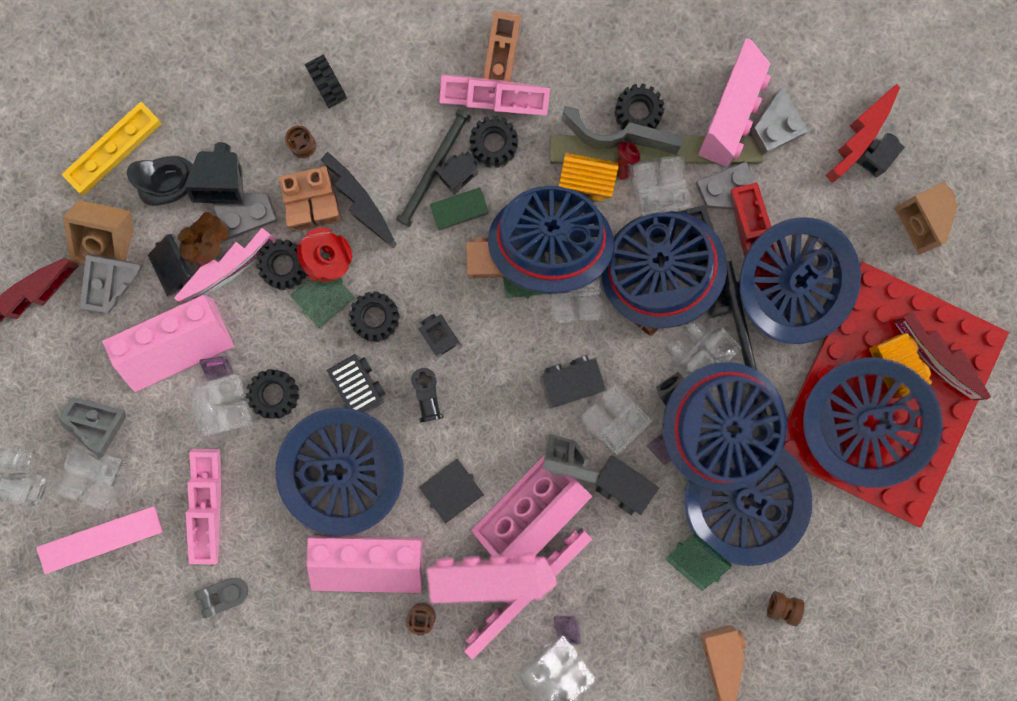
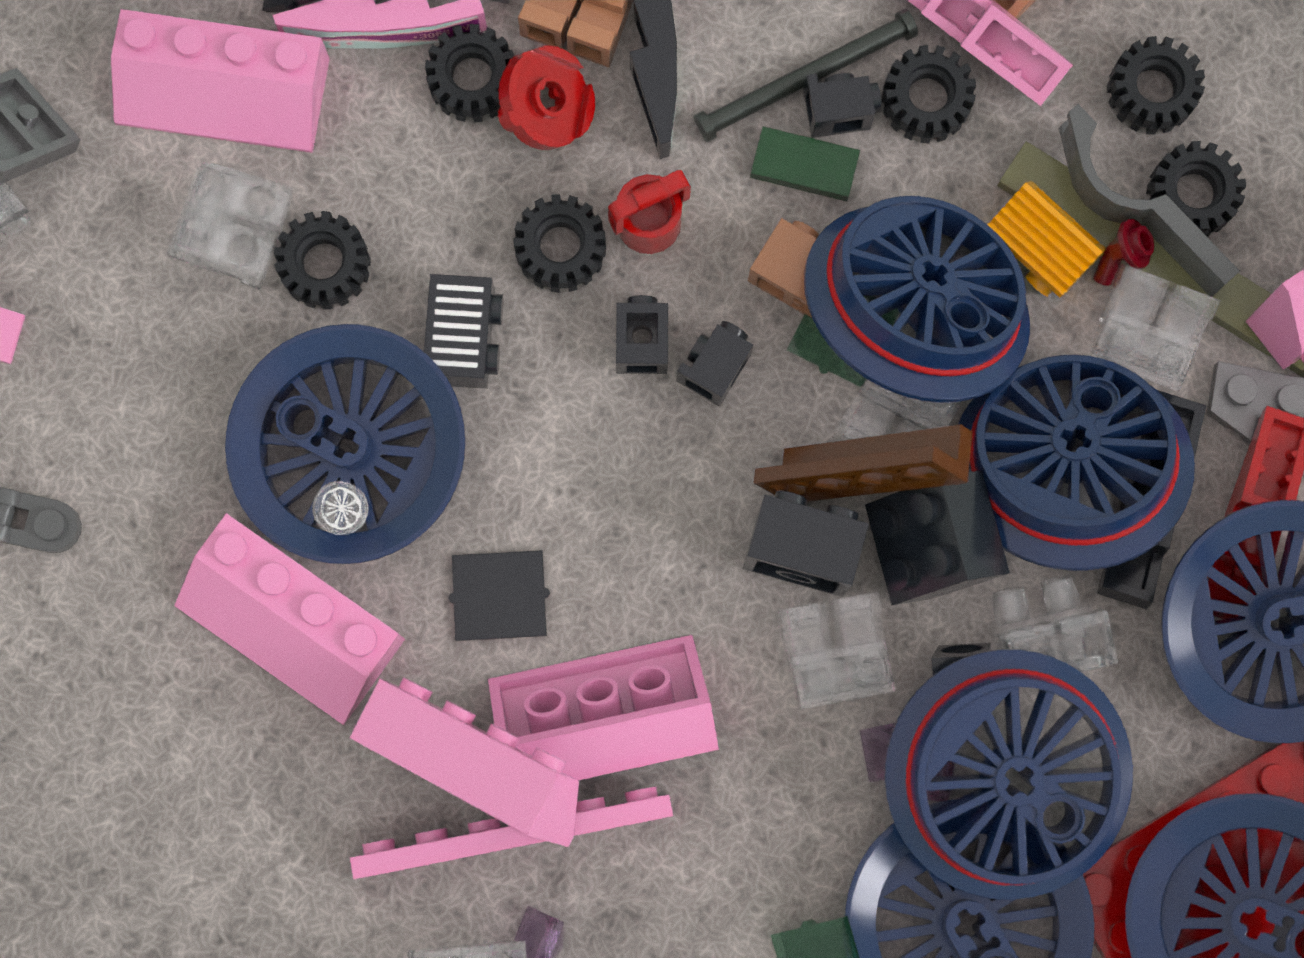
camera: 35 degrees right, 5 degrees down
(204, 506) = (100, 364): bright pink slope -> none
(216, 367) = (264, 160): clear purple slope -> none
(322, 299) = (496, 166): clear green piece -> none
(357, 502) = (340, 508): none -> clear tile
(405, 277) = (650, 211): none -> red piece
(420, 614) = (325, 763): reddish brown wheel -> none
(427, 396) = (561, 418): black connector -> none
(479, 325) = (716, 362): none -> black brick
(566, 458) = (718, 659): flat silver wing -> none
(579, 329) = (872, 464): none -> reddish brown fence
(595, 58) = (1171, 62): none -> black tyre
(626, 485) = (783, 768): black brick -> none
(628, 342) = (936, 540): none -> black brick
(731, 289) = (1162, 565): black bar -> none

